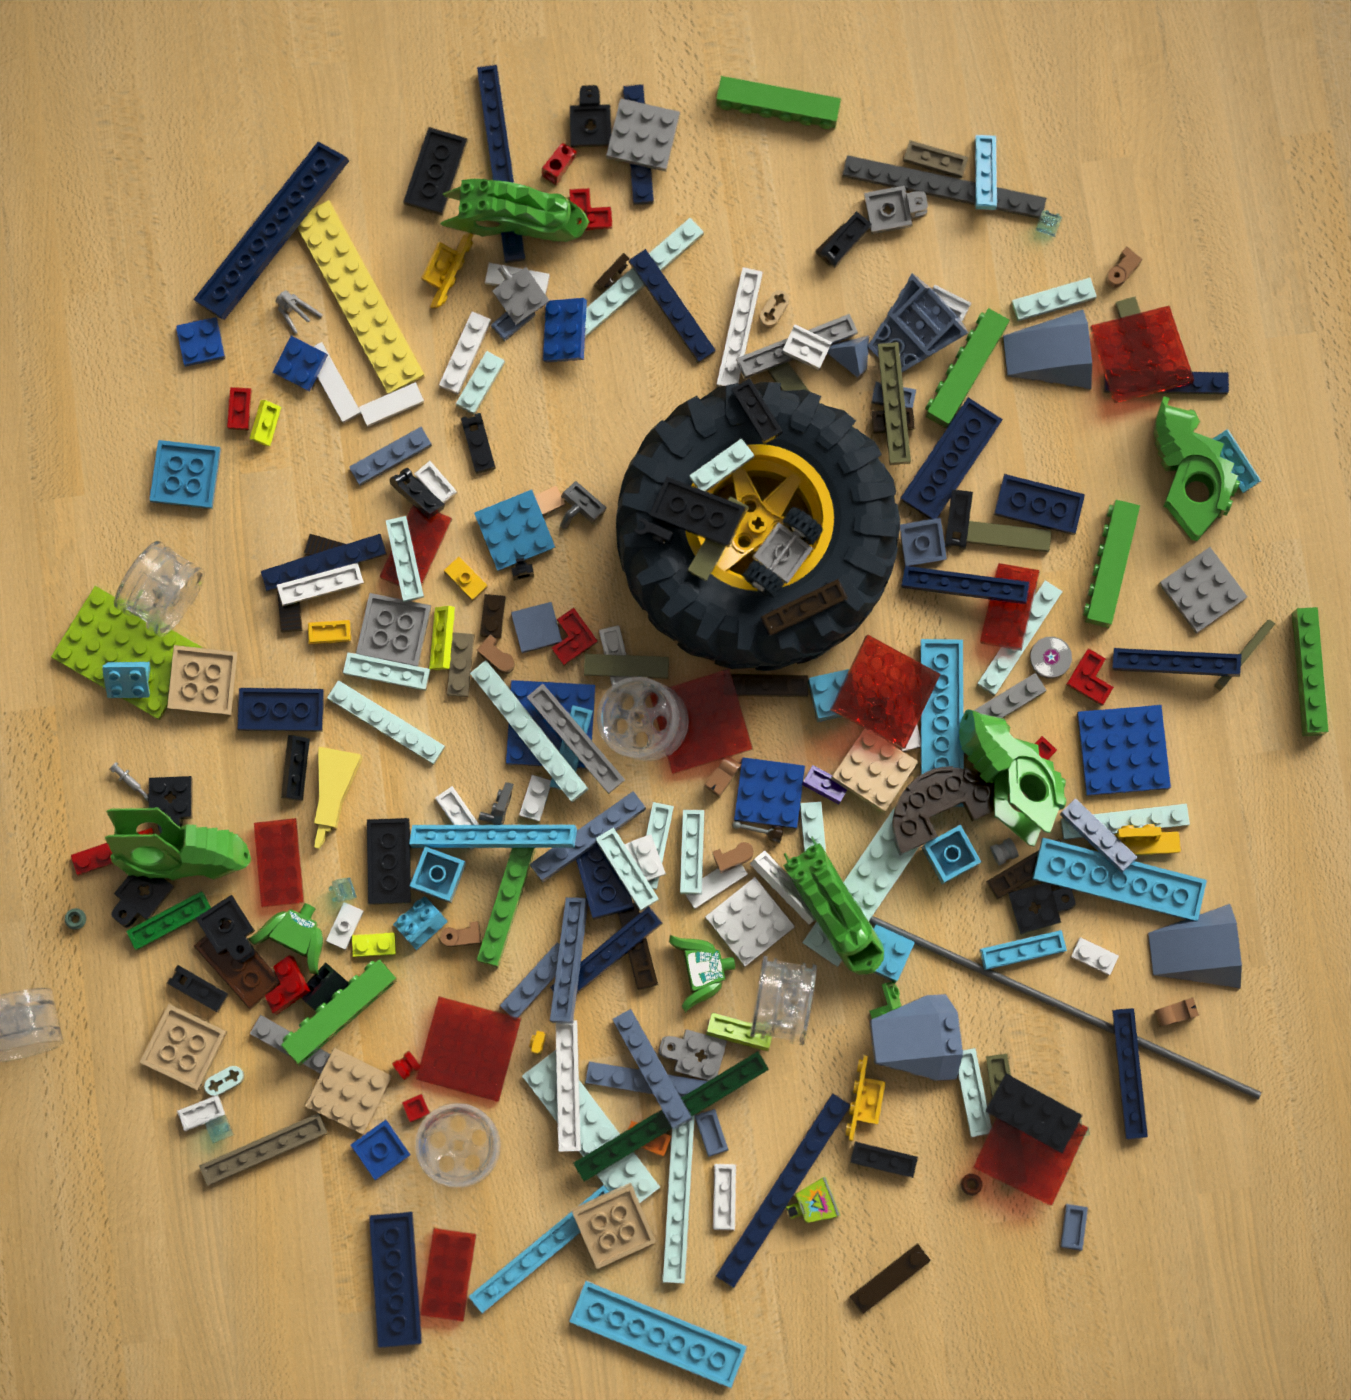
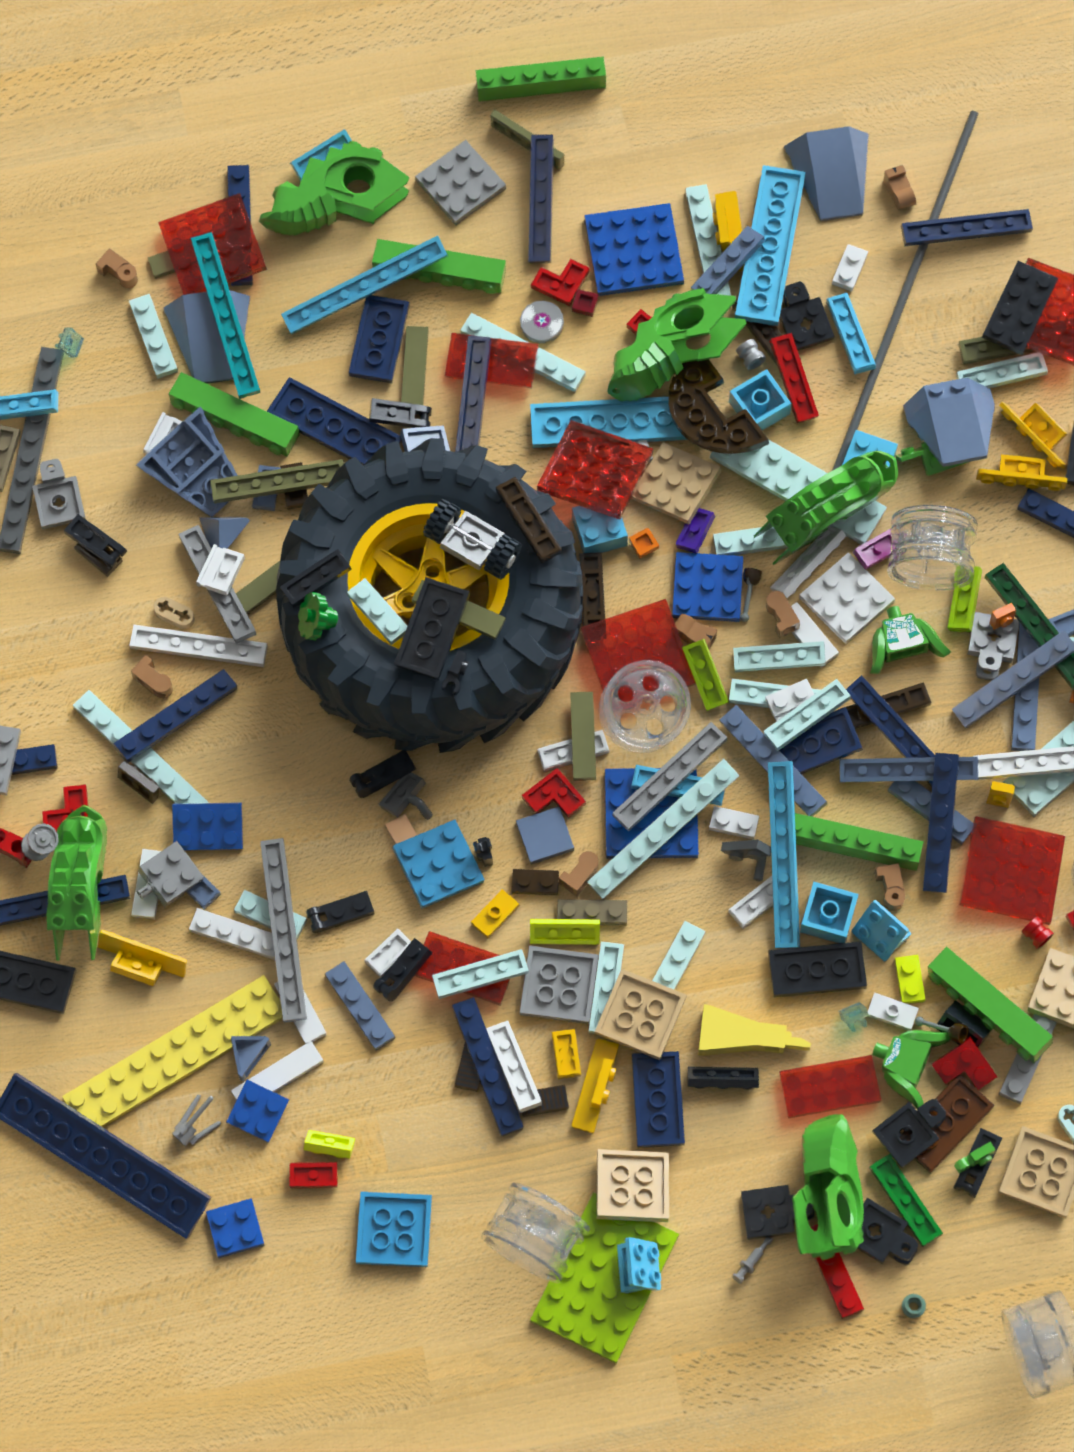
camera: 90 degrees left, 10 degrees down
(197, 988) = (981, 1156): none -> bright green plate
(298, 655) = (594, 1089): none -> yellow bracket
(313, 978) = (957, 1032): none -> dark brown hinge
(351, 355) = (248, 1052): none -> sand blue slope
(355, 697) = (640, 1014): none -> tan plate
(460, 390) = (283, 930): none -> light grey plate
(514, 984) = (941, 822): none -> dark blue plate
(550, 179) = (39, 842): none -> light grey hose
(602, 484) = (382, 774): none -> black plate
(677, 781) = (705, 674): none -> lime plate
(709, 286) = (156, 683): none -> medium nougat leg
(713, 1063) = (1003, 616): none -> orange plate
(716, 409) = (315, 616): none -> green plant
(793, 949) = (874, 550): none -> magenta plate
(815, 736) = (643, 543): none -> orange plate
(910, 1121) = (1040, 429): none -> yellow bracket
(975, 889) = (794, 378): none -> red plate
(1013, 698) = (588, 357): light grey plate -> none
(1063, 359) = (225, 315): none -> teal plate
(1067, 698) = (585, 303): none -> dark red plate
(1091, 491) = (364, 285): none -> medium azure plate

